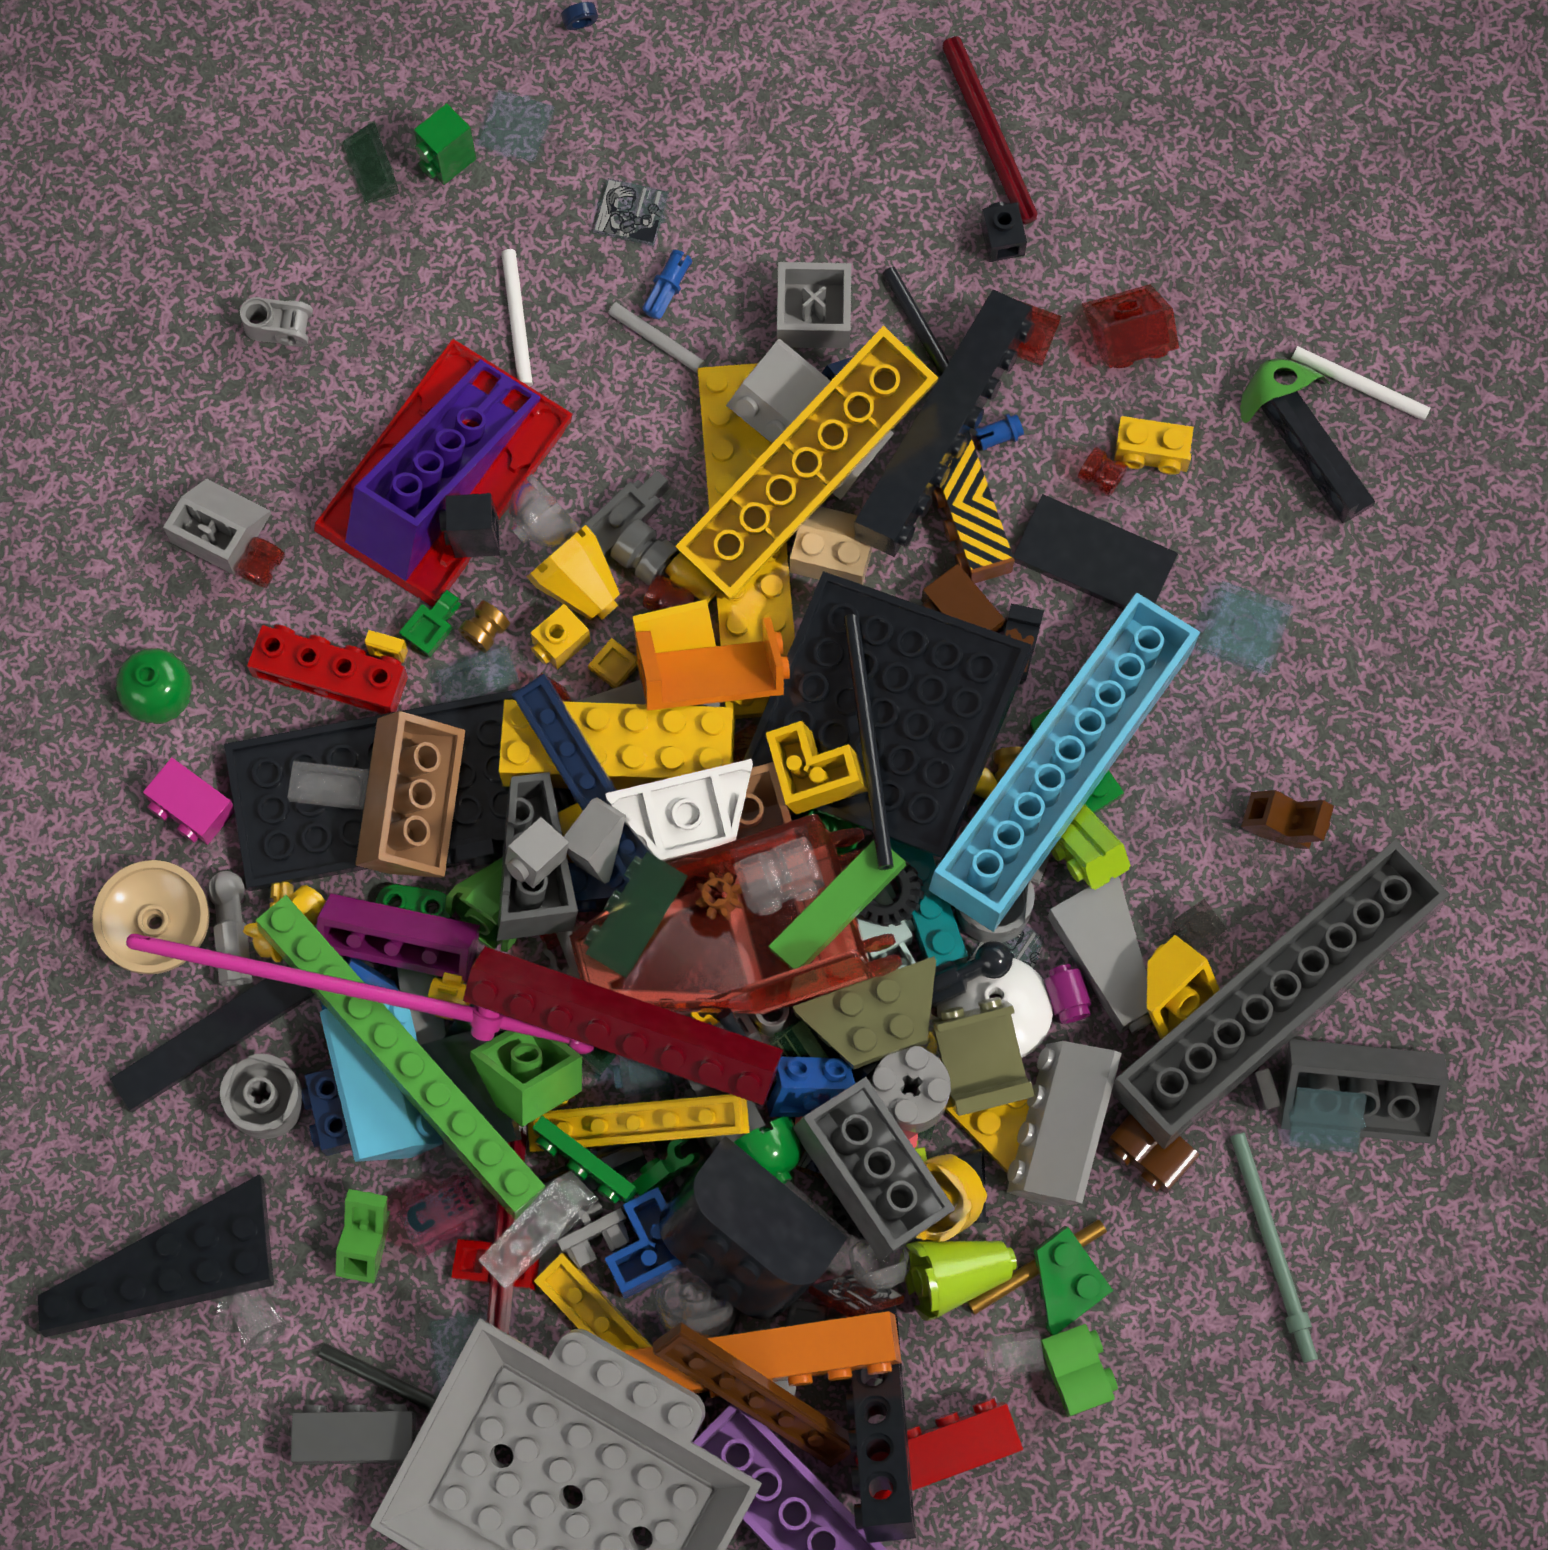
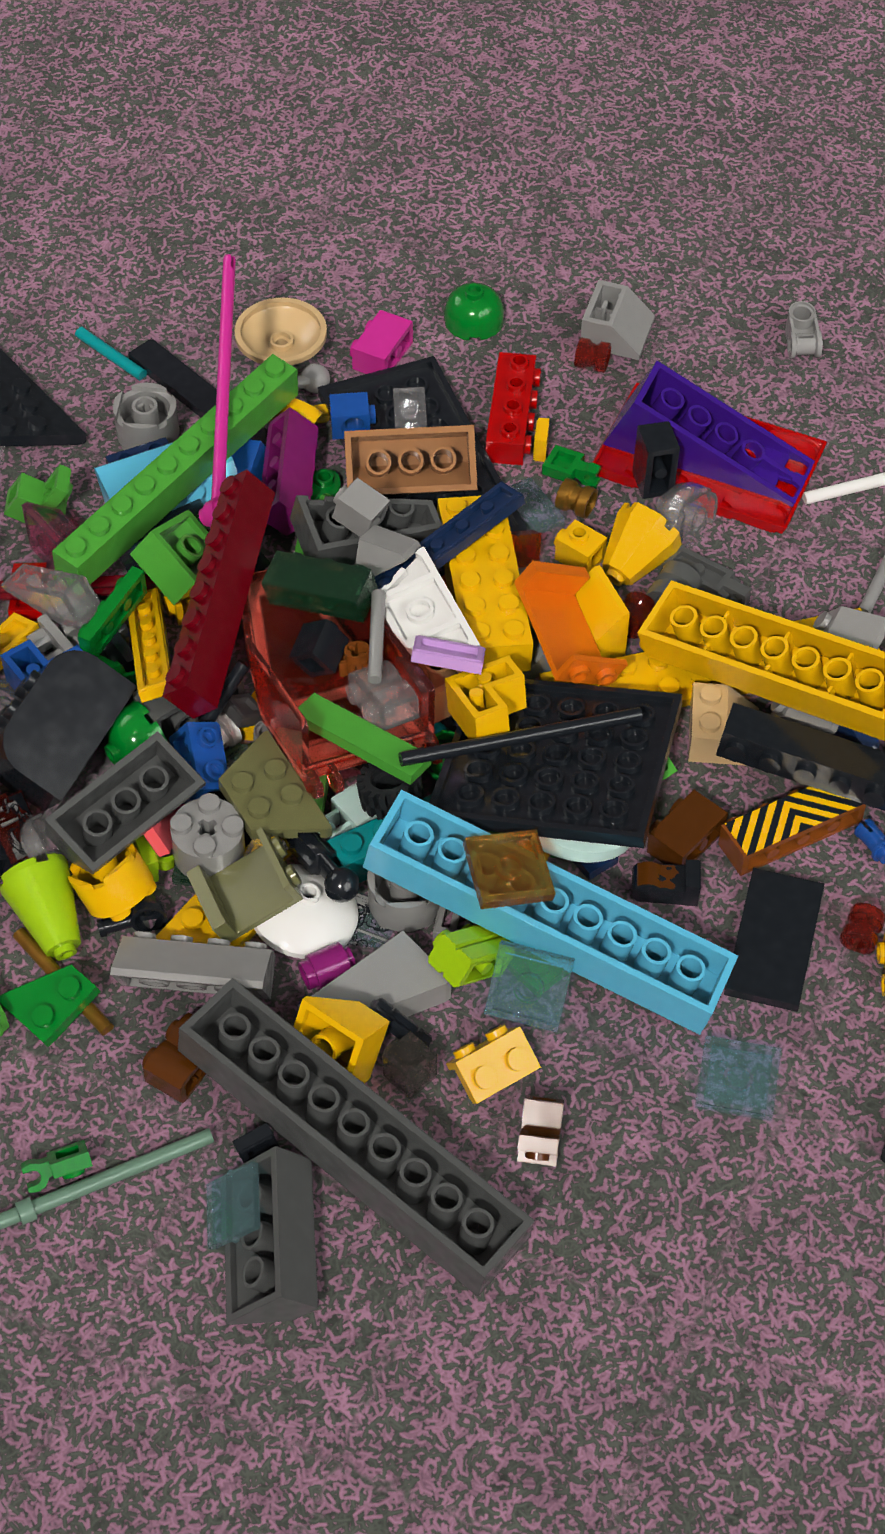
camera: 80 degrees right, 20 degrees down
(118, 1133) = (110, 353): none -> teal bar
(319, 853) = (350, 413): none -> blue brick
(702, 932) = (319, 648): none -> black brick
(719, 865) = (376, 639): none -> light grey bar
(764, 793) = (448, 654): none -> lavender tile
(1037, 784) = (508, 869): none -> clear orange tile
(1131, 798) = (529, 986): none -> clear light blue tile
(1155, 931) = (399, 1023): none -> black axle
(1198, 852) = (494, 1063): none -> yellow bracket
(1253, 1279) = (63, 1162): none -> green plate

